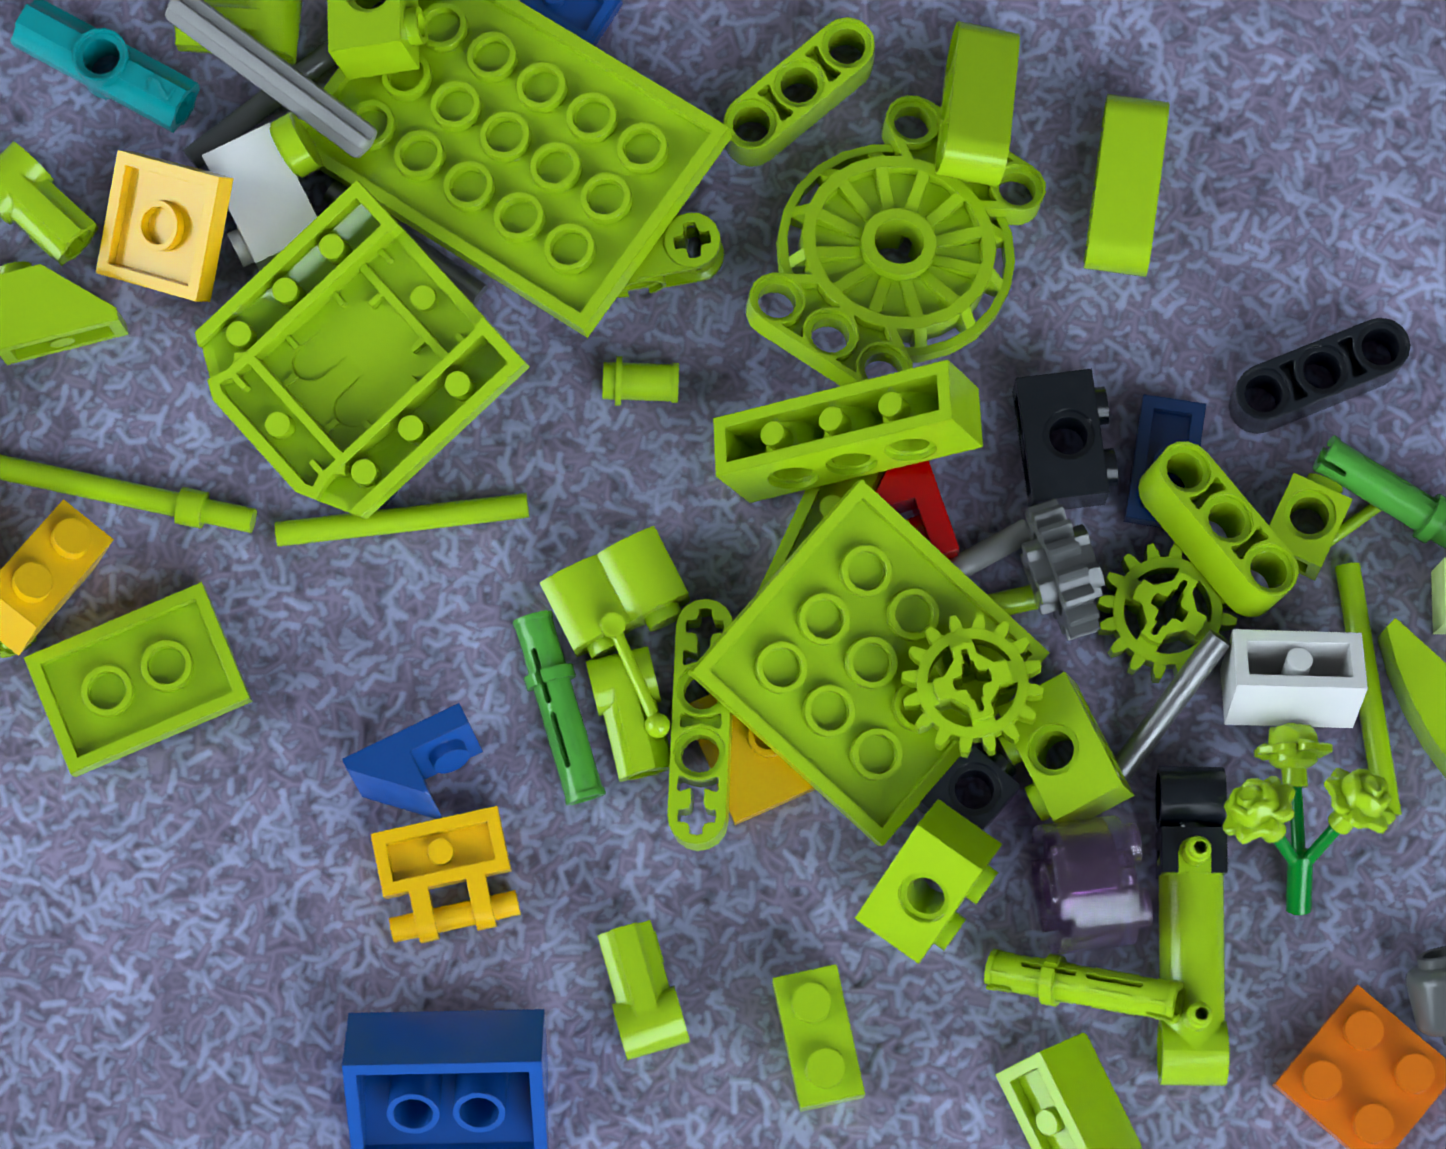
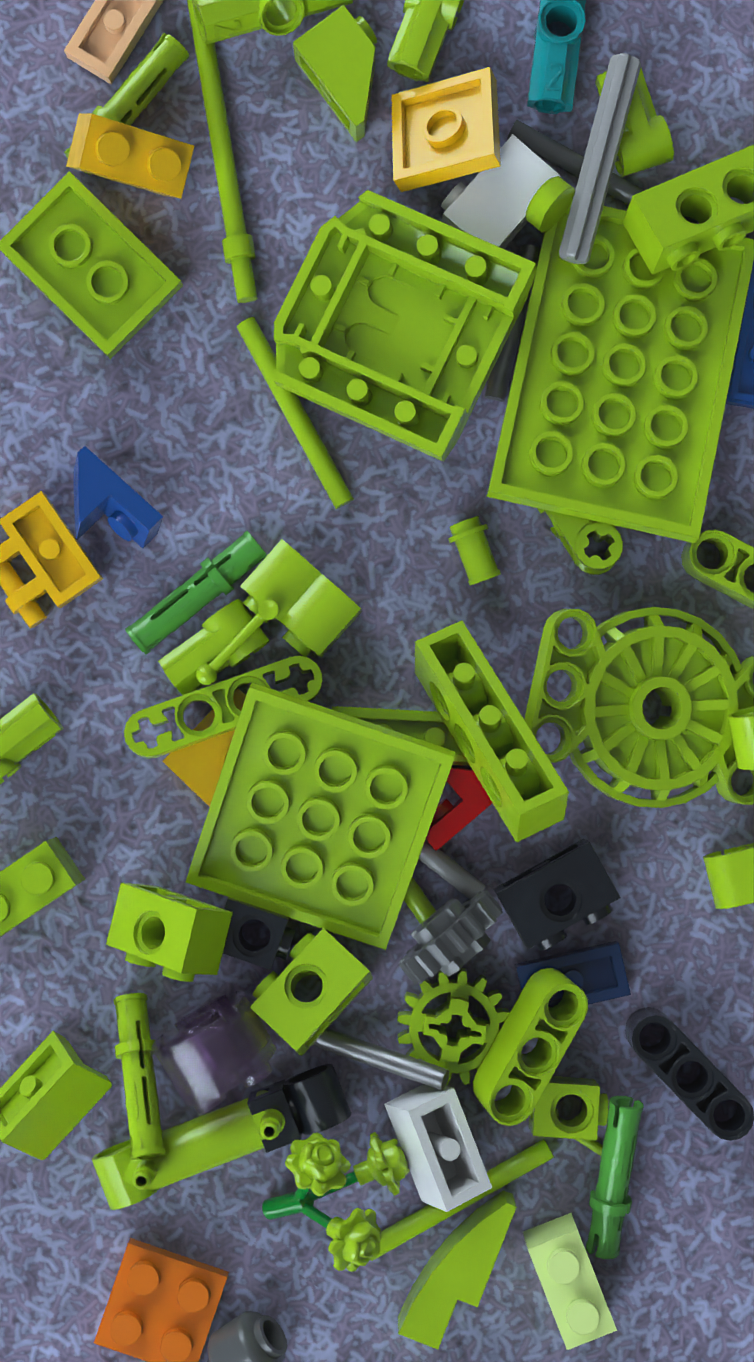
camera: 65 degrees right, 10 degrees up
(1001, 675) = (342, 926): lime gear -> none

